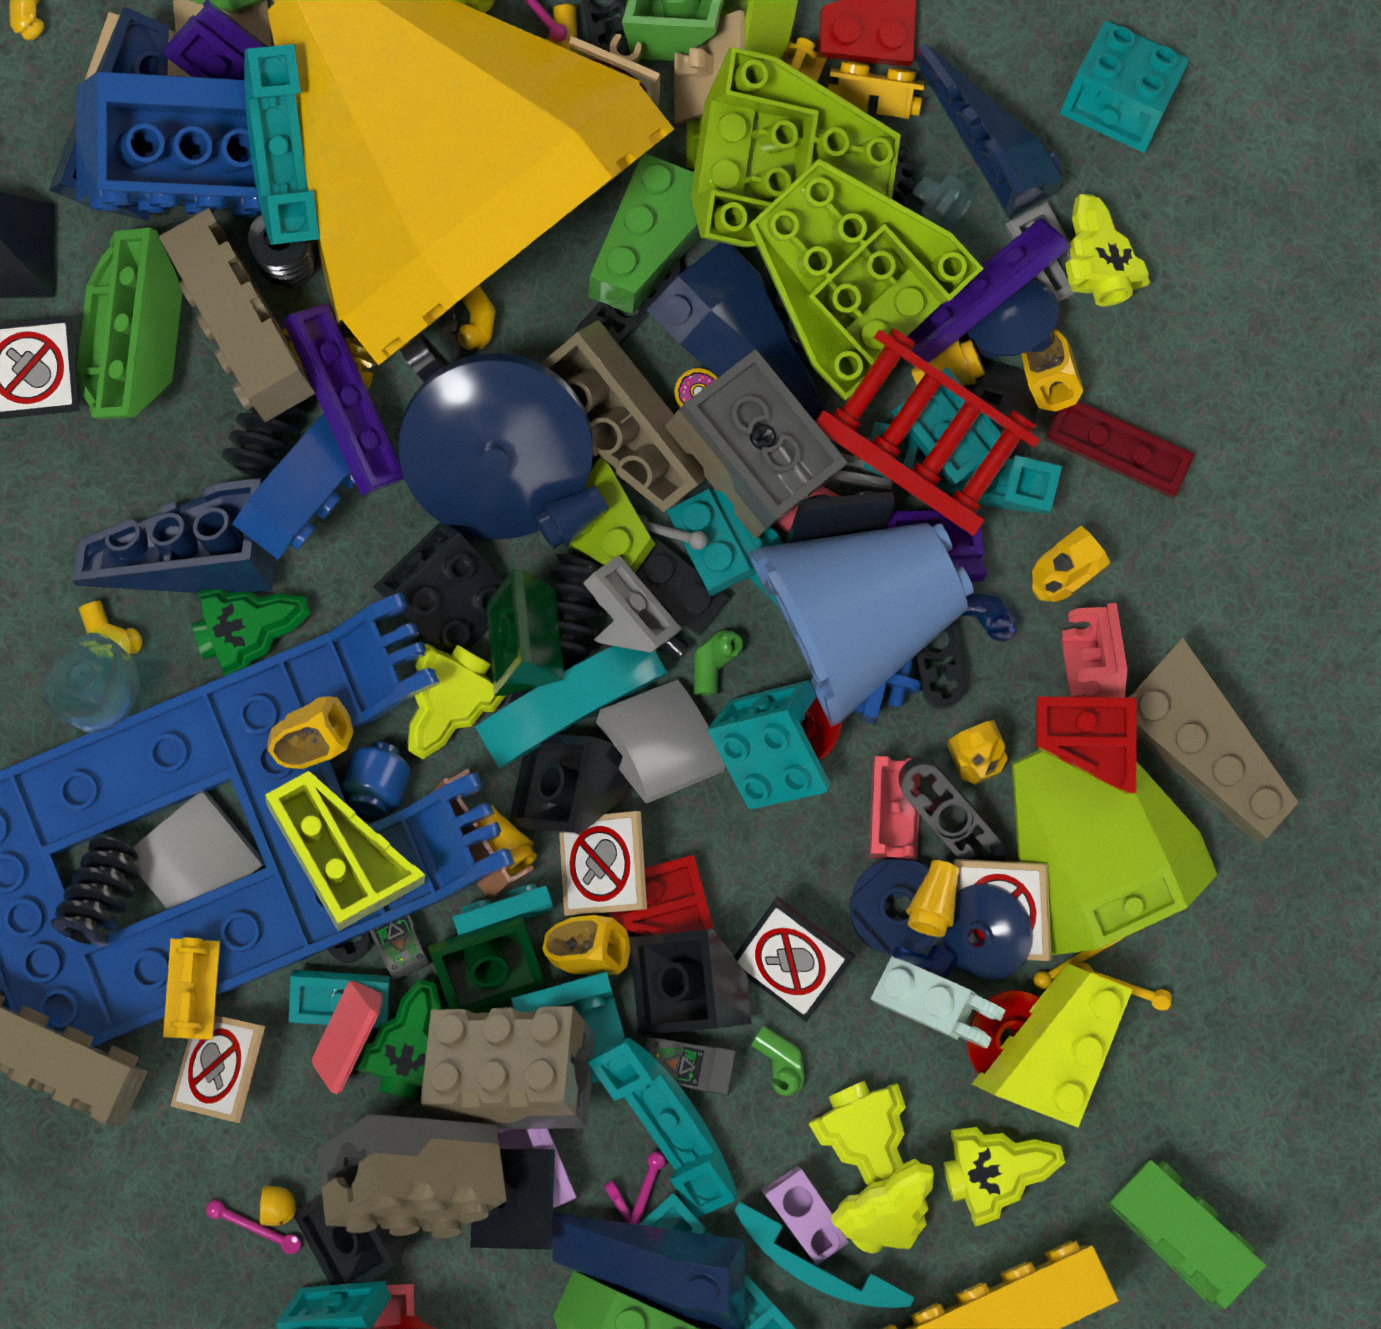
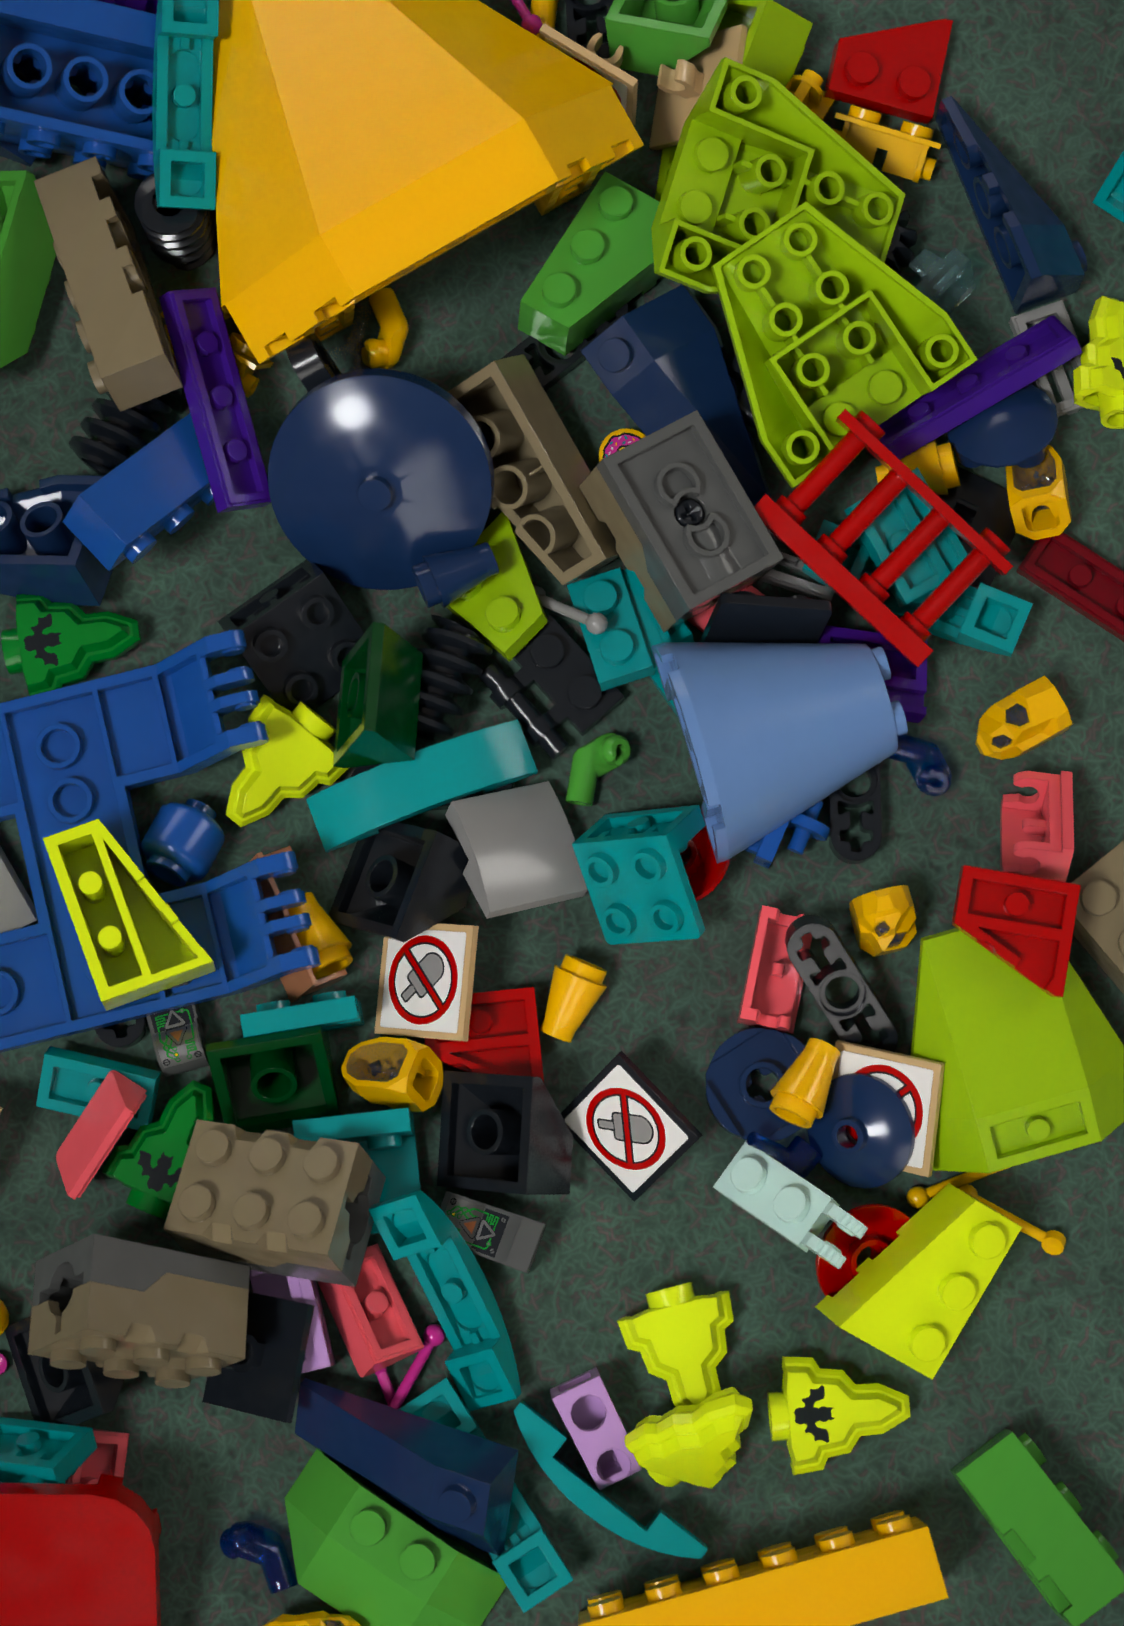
camera: 15 degrees right, 0 degrees up
(311, 734) = (113, 777): yellow rock -> none
(602, 1153) = (372, 1316): none -> coral slope
(637, 615) = (511, 696): light grey slope -> none
(726, 858) = (572, 995): none -> yellow cone
(786, 1061) = (603, 1243): bright green arm -> none

